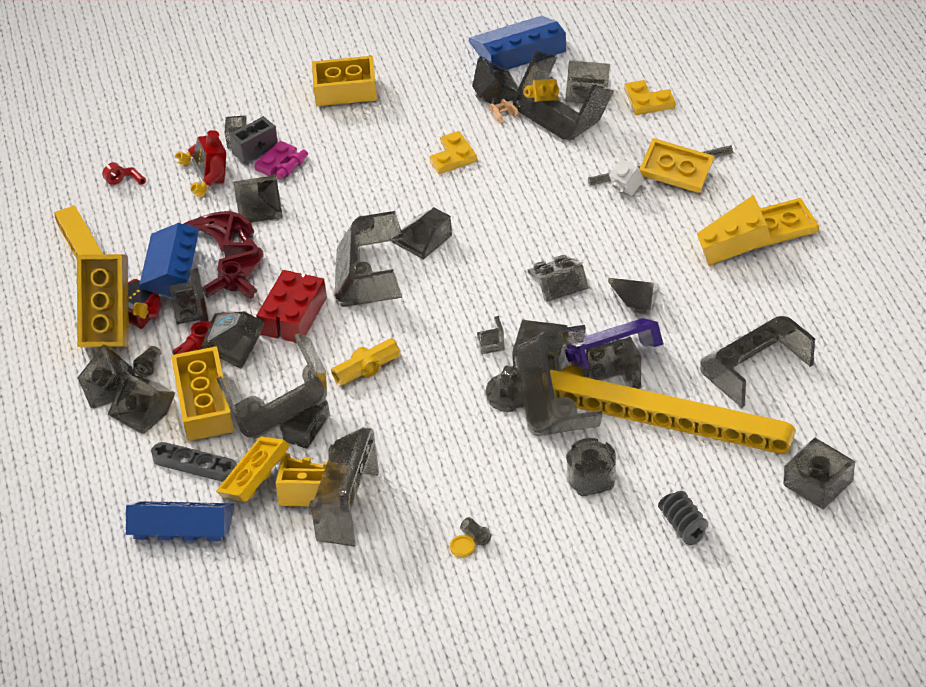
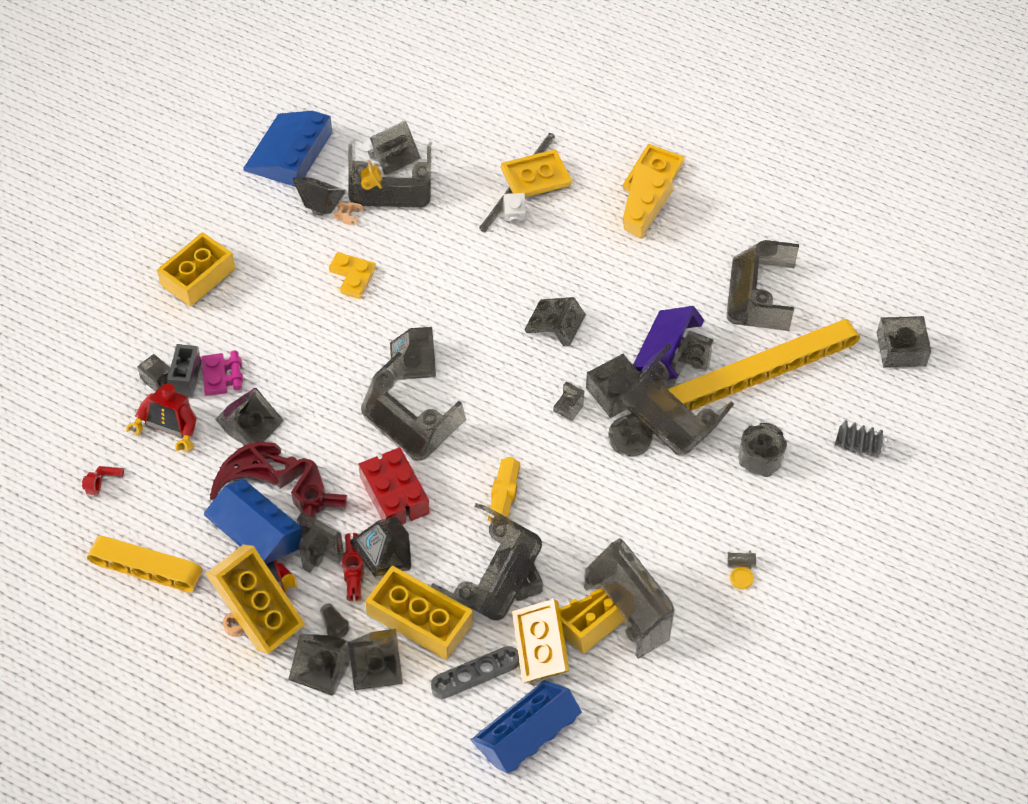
camera: 50 degrees left, 10 degrees up
(636, 294) = (629, 293): clear smoke slope -> none
(646, 102) = (443, 137): yellow plate -> none

